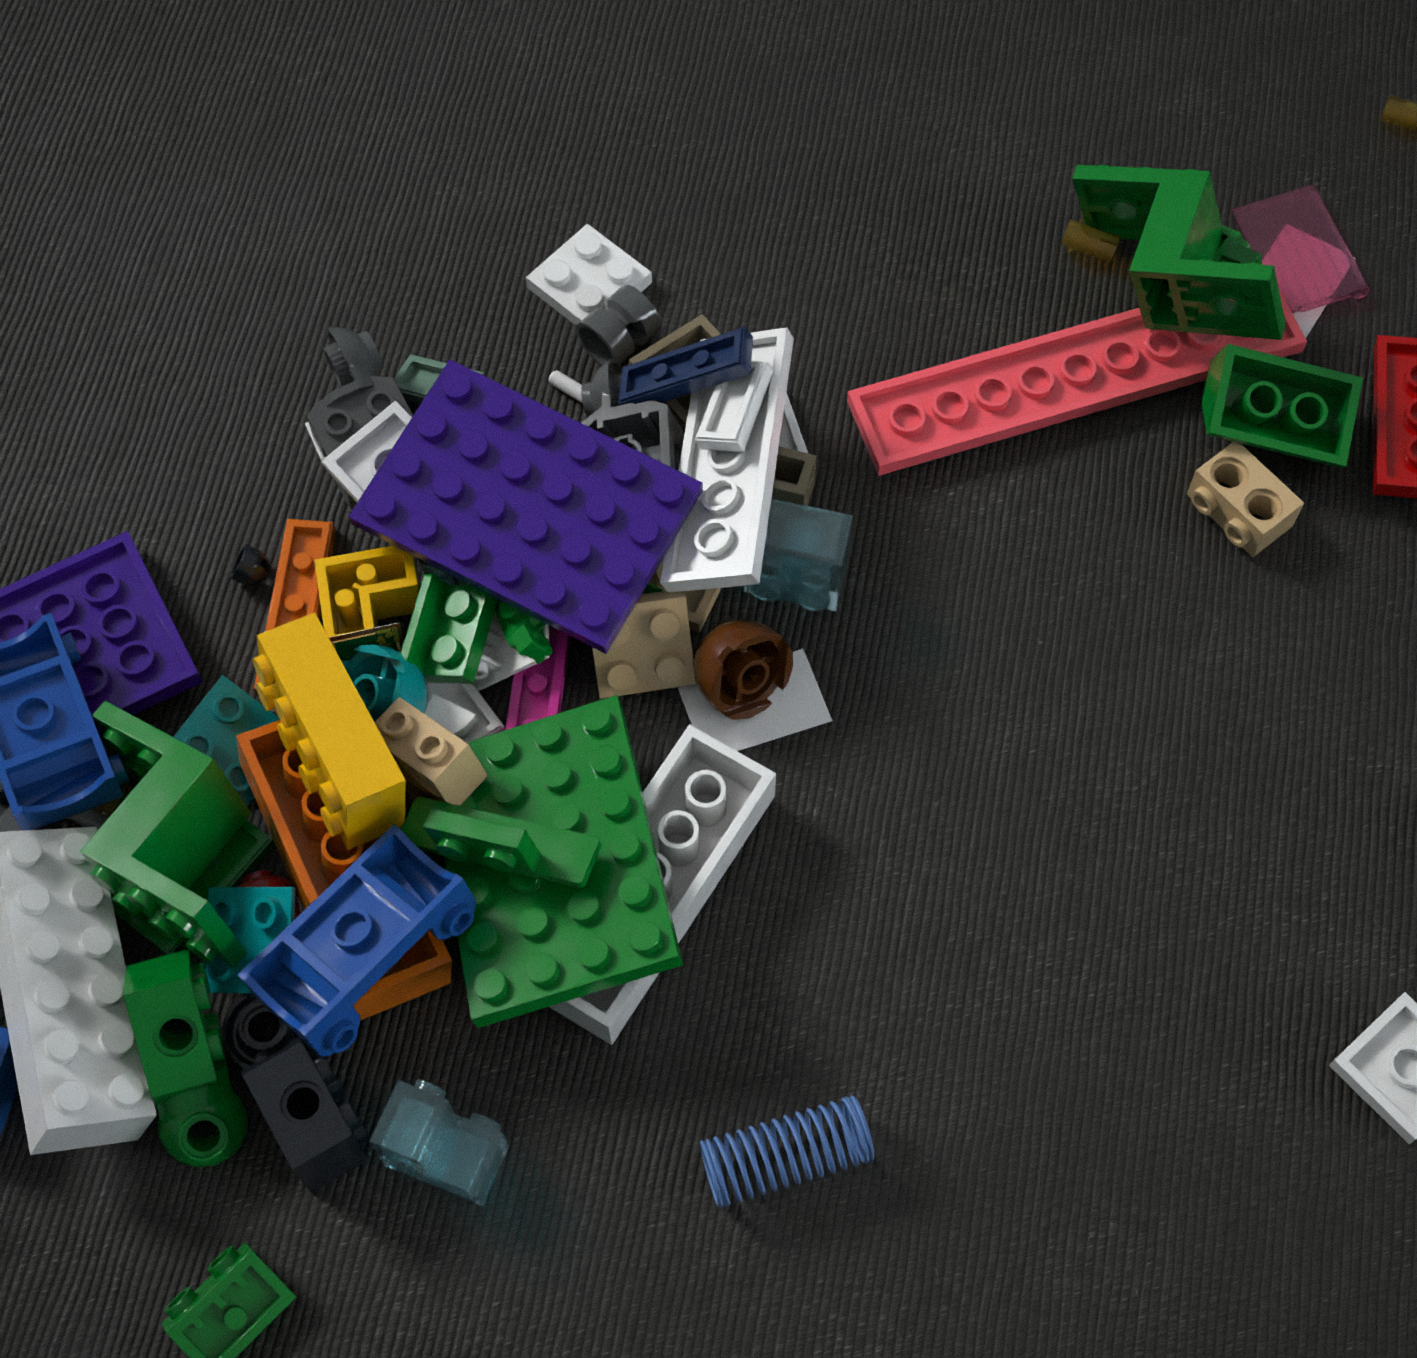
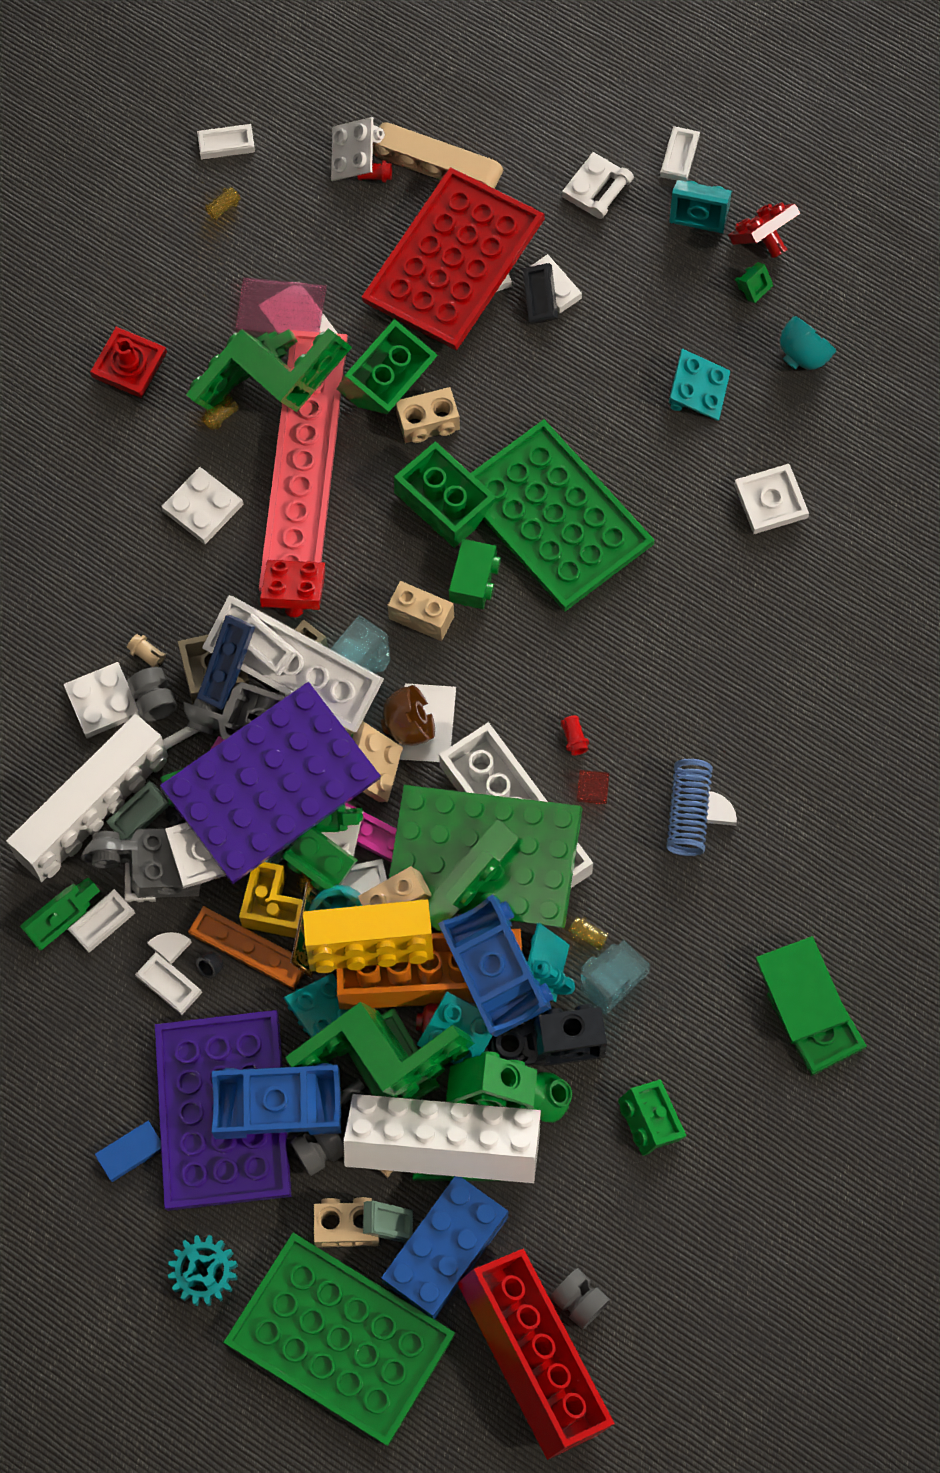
camera: 65 degrees left, 5 degrees up
(203, 529) = (168, 983): none -> white tile
(250, 352) = (59, 913): none -> green hinge
(258, 506) = (169, 945): none -> white tile
(263, 410) = (101, 920): none -> white tile
(418, 1029) = (548, 961): none -> teal hinge
(424, 308) = (88, 798): none -> white brick
(506, 1078) = (588, 932): none -> clear yellow pin
(685, 292) = (145, 650): none -> tan pin
(759, 986) = (593, 787): none -> clear red tile
(810, 1207) = (720, 810): none -> white tile
(830, 922) = (576, 741): none -> red pin
(865, 423) = (293, 585): none -> red plate
(922, 615) = (421, 611): none -> tan brick
(940, 279) = (202, 505): none -> white plate
(1022, 665) = (473, 574): none -> green brick
(1101, 105) = (128, 362): none -> red plate
(1126, 567) = (443, 494): none -> green slope
(1186, 745) = (558, 516): none -> green plate

